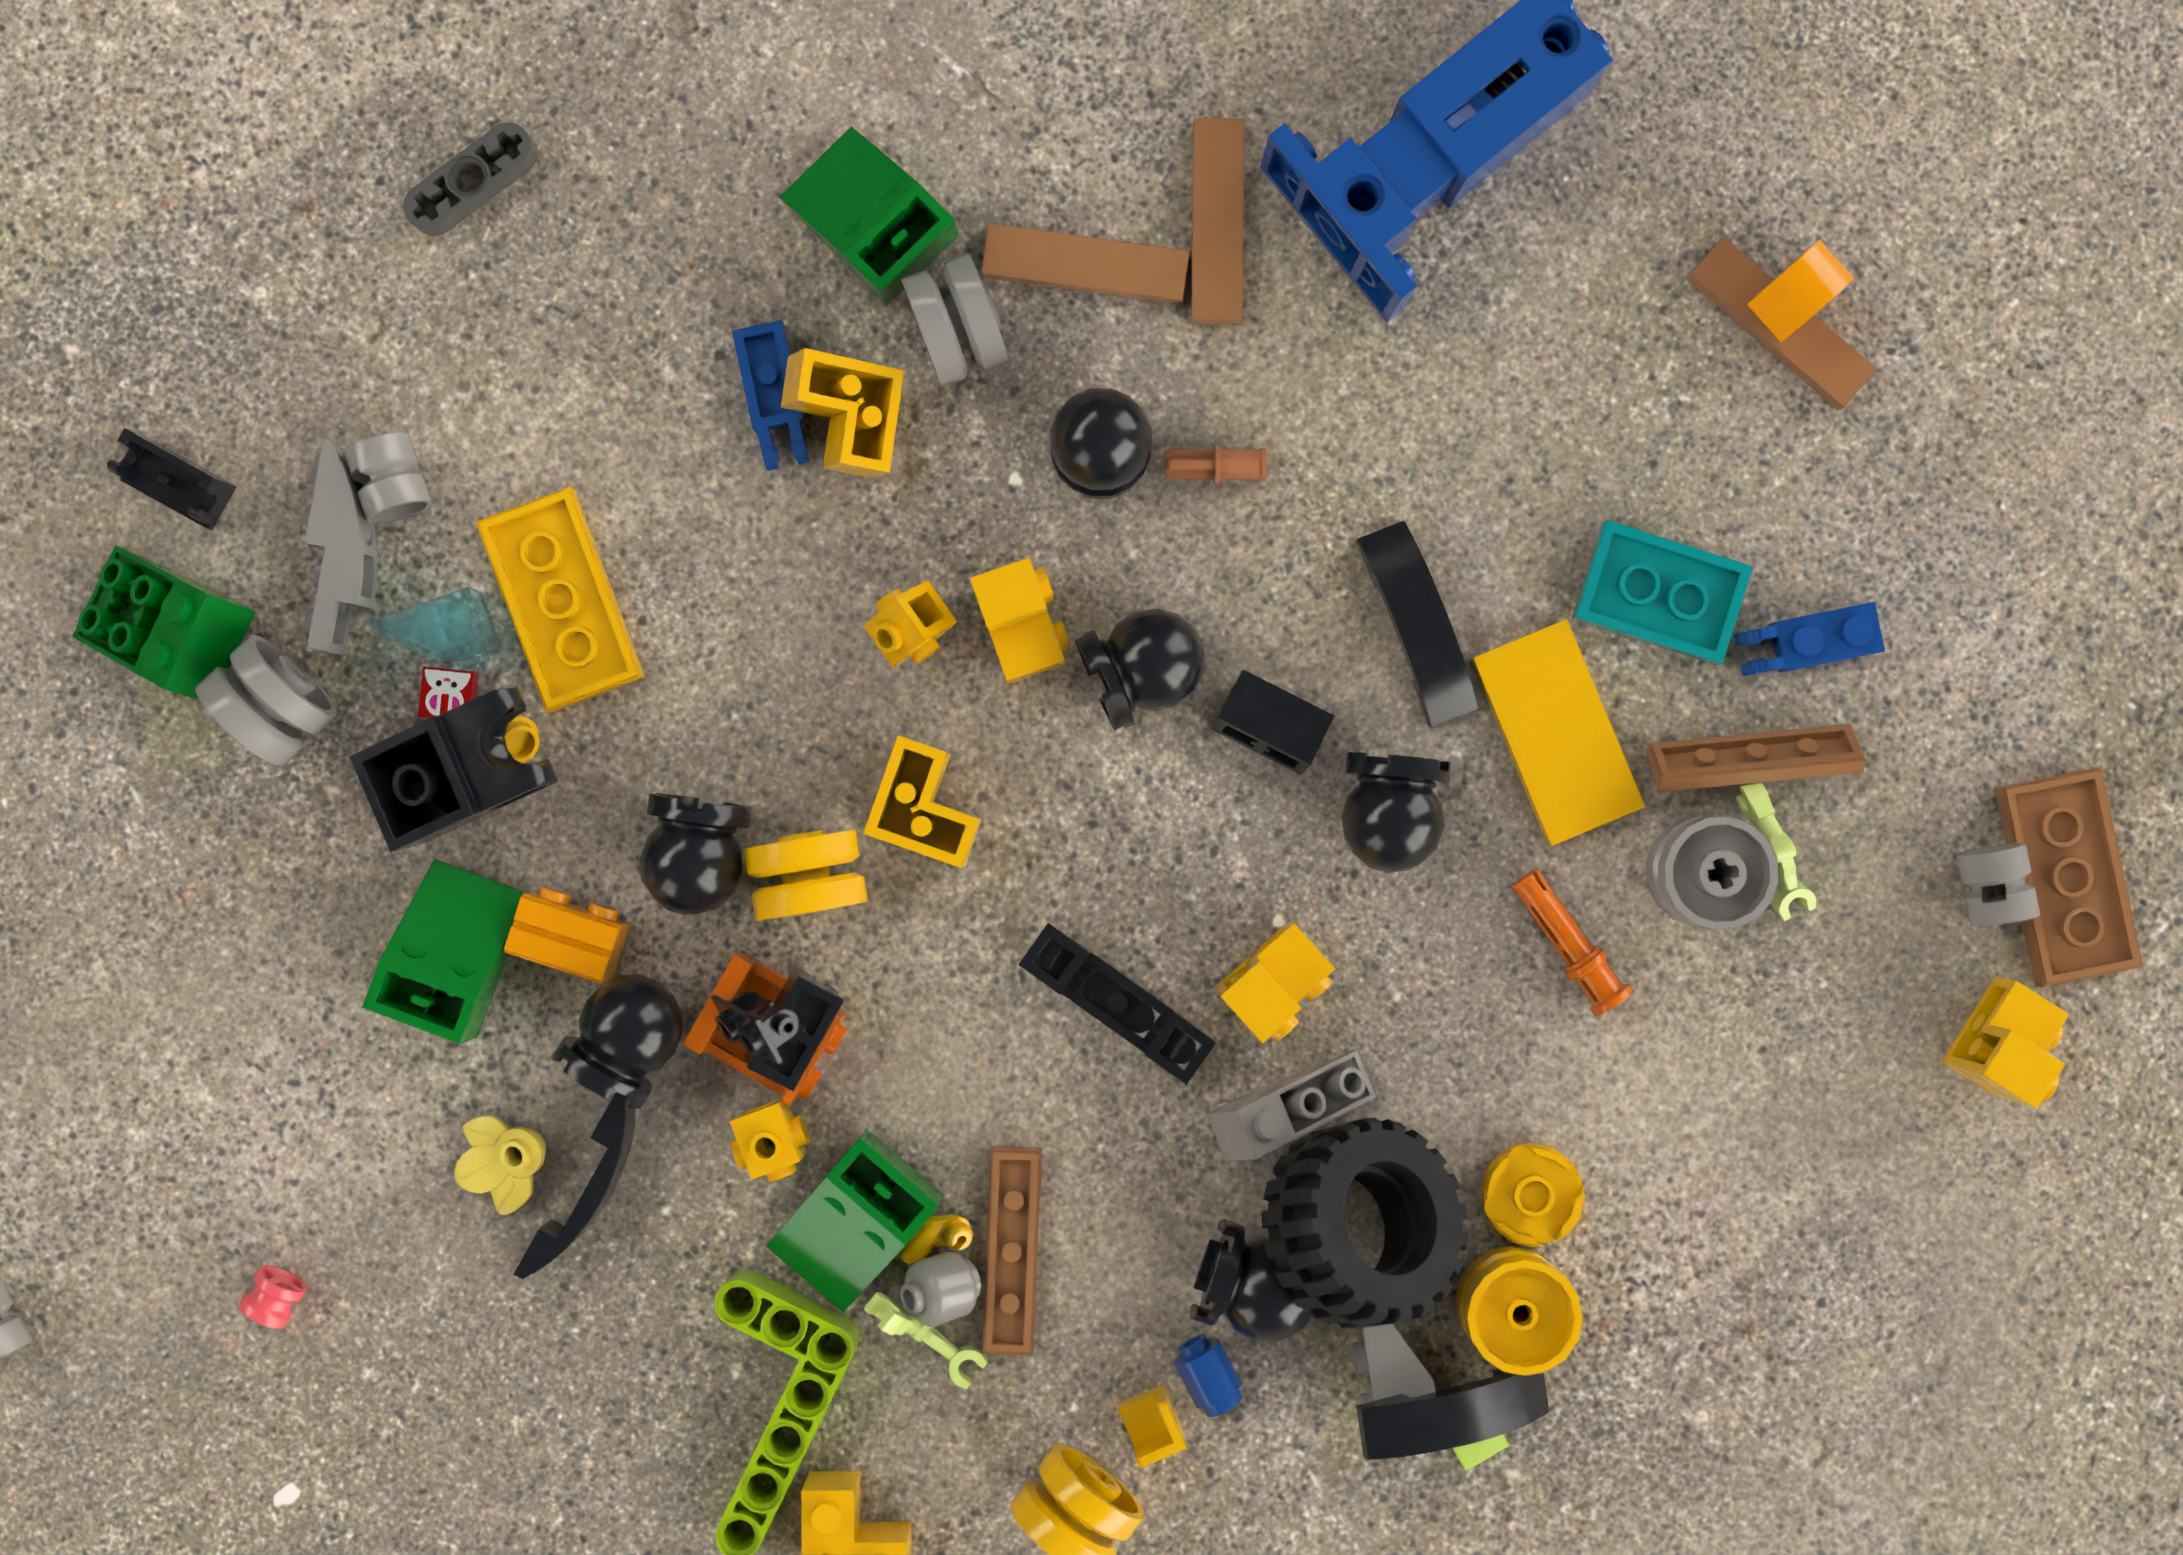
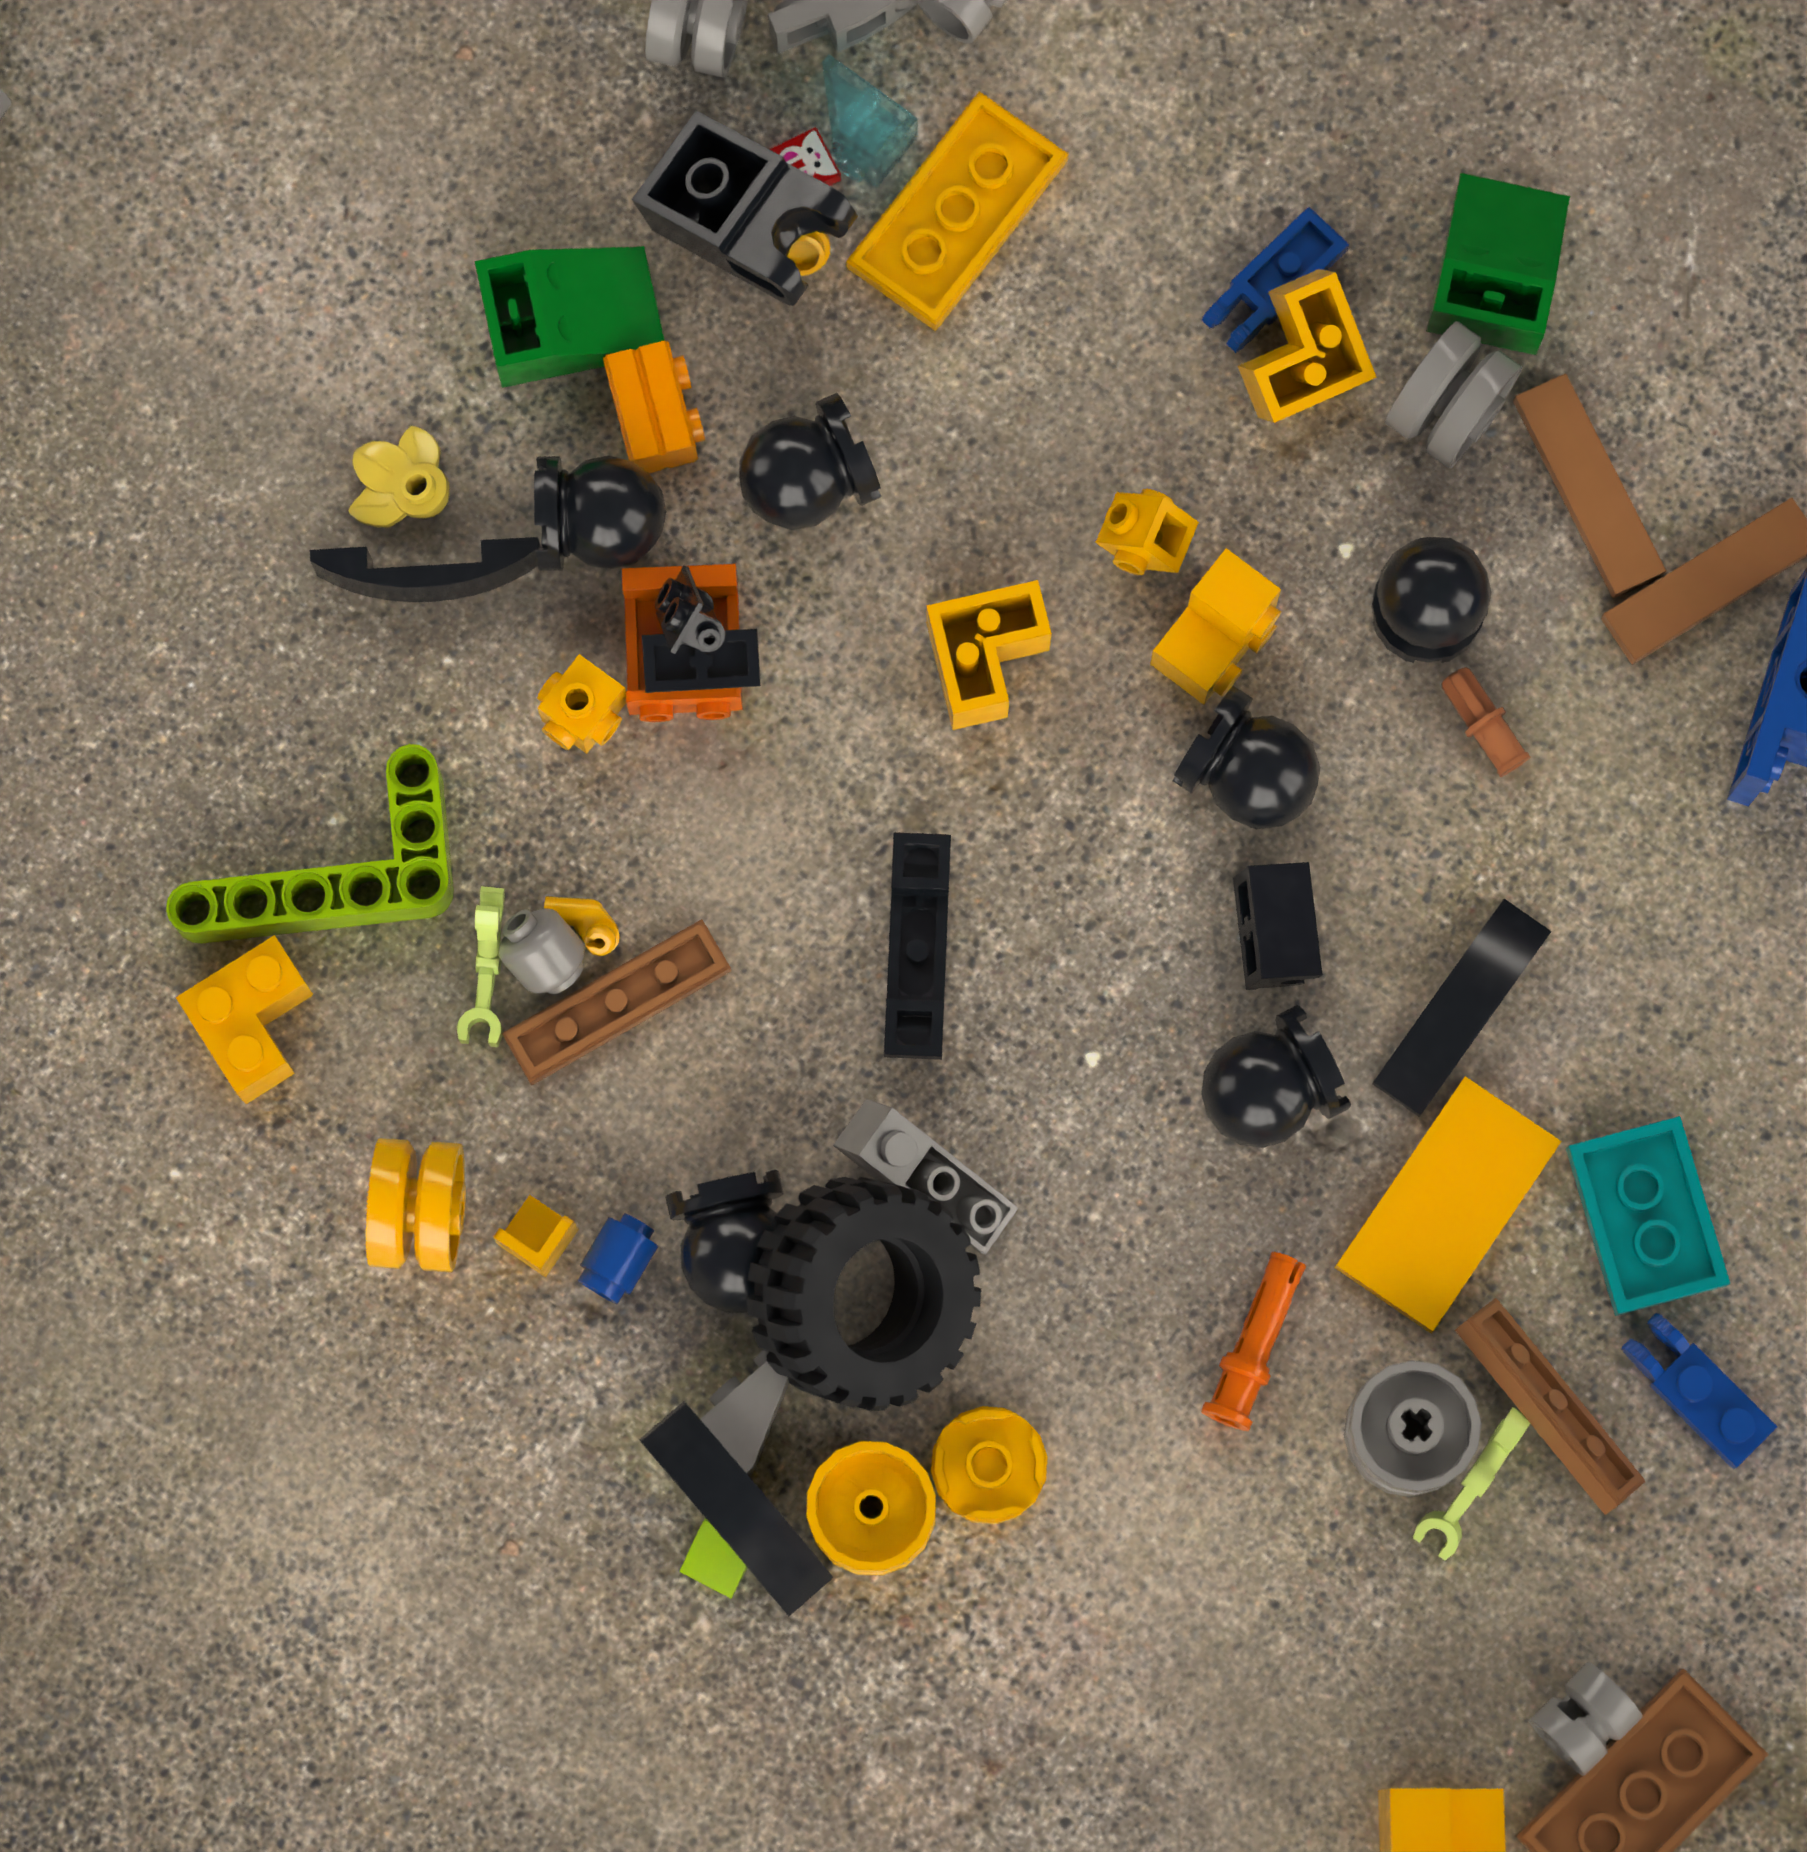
camera: 60 degrees right, 10 degrees down
(272, 1296) = (146, 352): coral wheel -> none
(805, 874) = (853, 581): yellow wheel -> none
(856, 1221) = (554, 832): green slope -> none
(1273, 981) = (1034, 1079): yellow brick -> none

